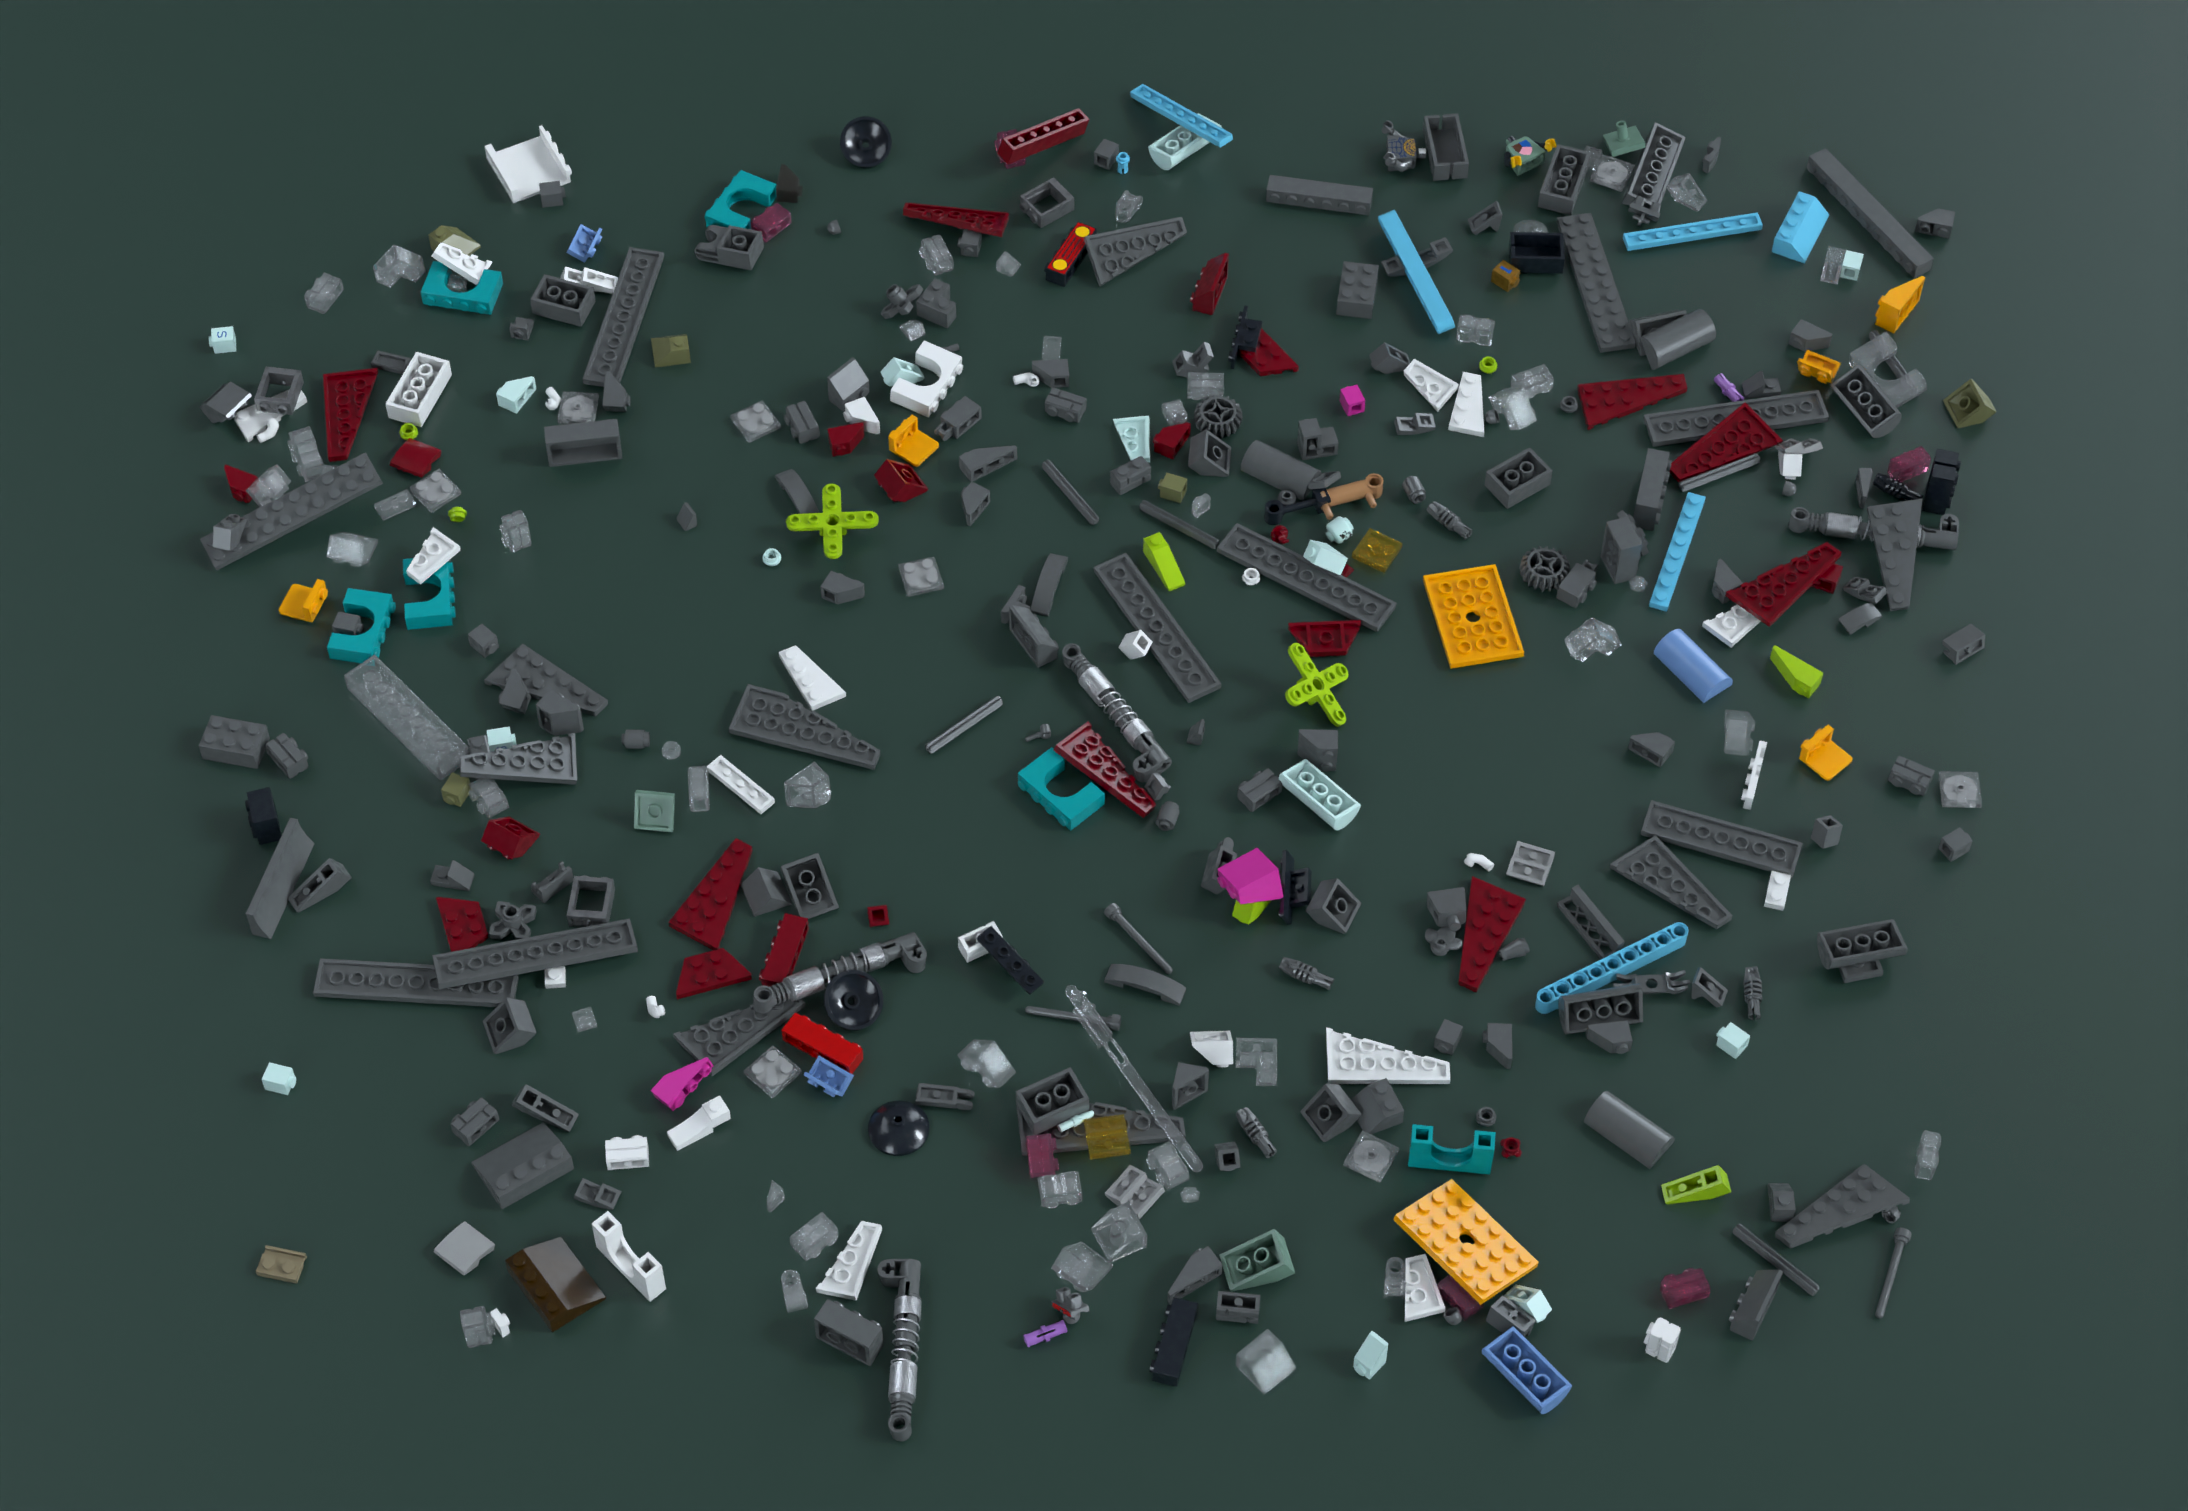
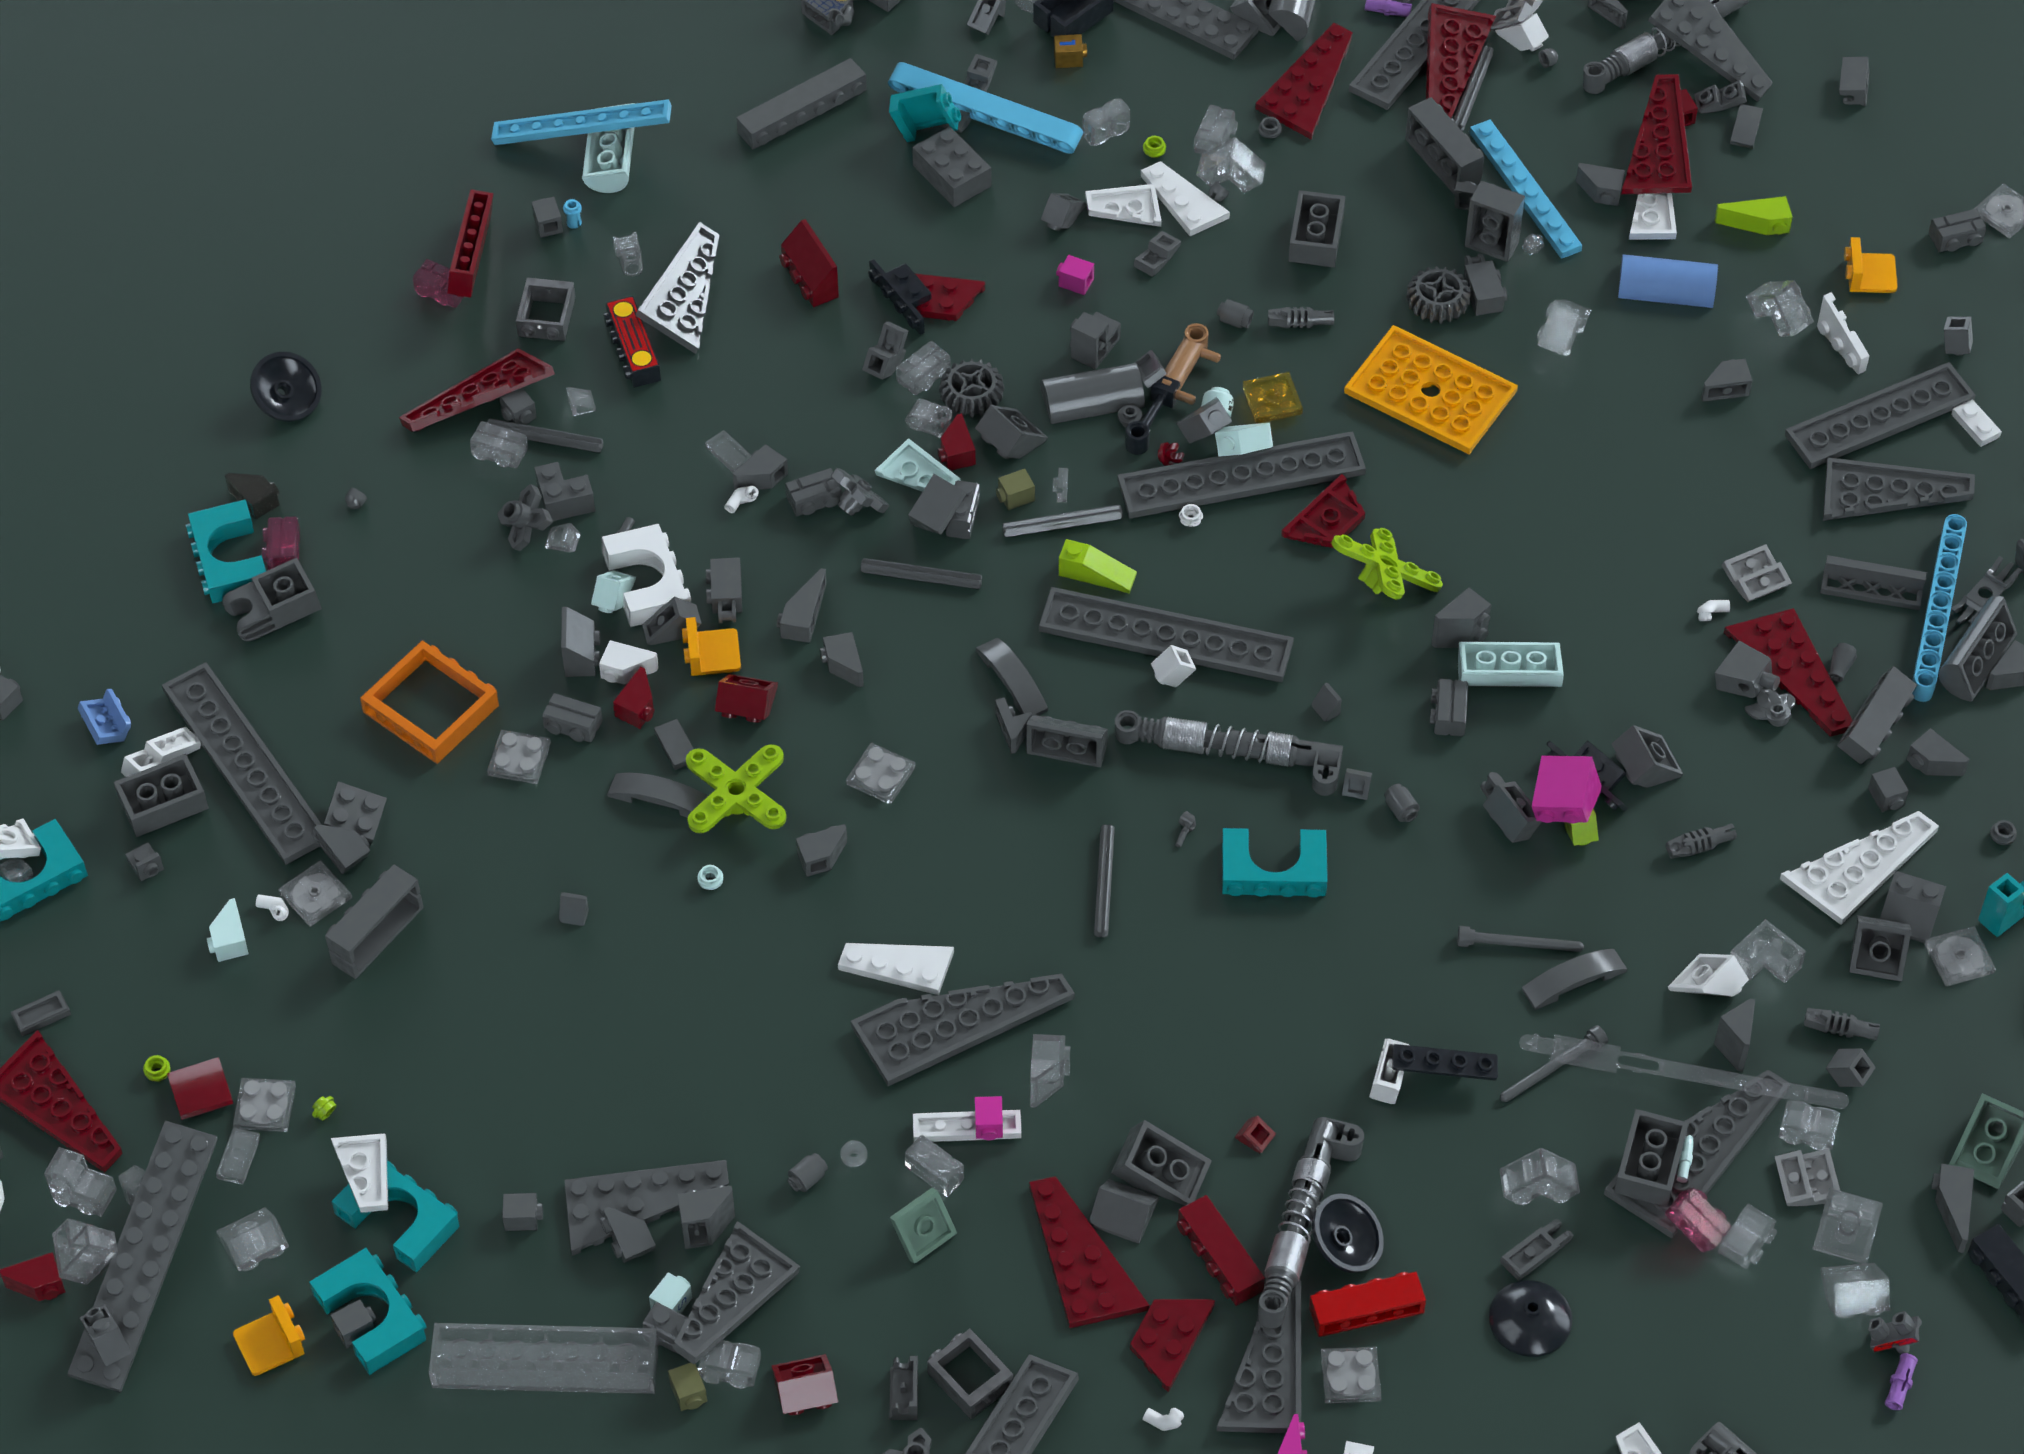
camera: 45 degrees left, 0 degrees up
(418, 389) = (117, 1013): white brick -> none
(515, 531) = (418, 1070): clear brick -> none
(642, 383) = (355, 810): none -> dark grey plate
(670, 350) = (338, 753): olive slope -> none
(747, 382) = (404, 729): none -> orange window
(749, 786) = (988, 1117): none -> dark pink brick
(830, 1076) = (1412, 1328): medium blue bracket -> none
(840, 474) = (674, 742): none -> dark grey tile
(913, 407) = (669, 620): none -> dark grey slope
(968, 269) = (552, 436): none -> dark grey axle
(1085, 422) = (857, 493): none -> dark grey plant
(1100, 763) = (1290, 808): dark red wing -> none
(1106, 1136) = (1730, 1147): clear yellow slope -> none
(1112, 457) = (936, 505): none -> dark grey slope
(1190, 1195) = (1860, 1134): clear plate -> none
(1319, 530) = (1204, 421): none -> dark grey slope
(1373, 244) = (922, 110): none -> teal panel
(1492, 992) = (1877, 715): none -> dark grey brick

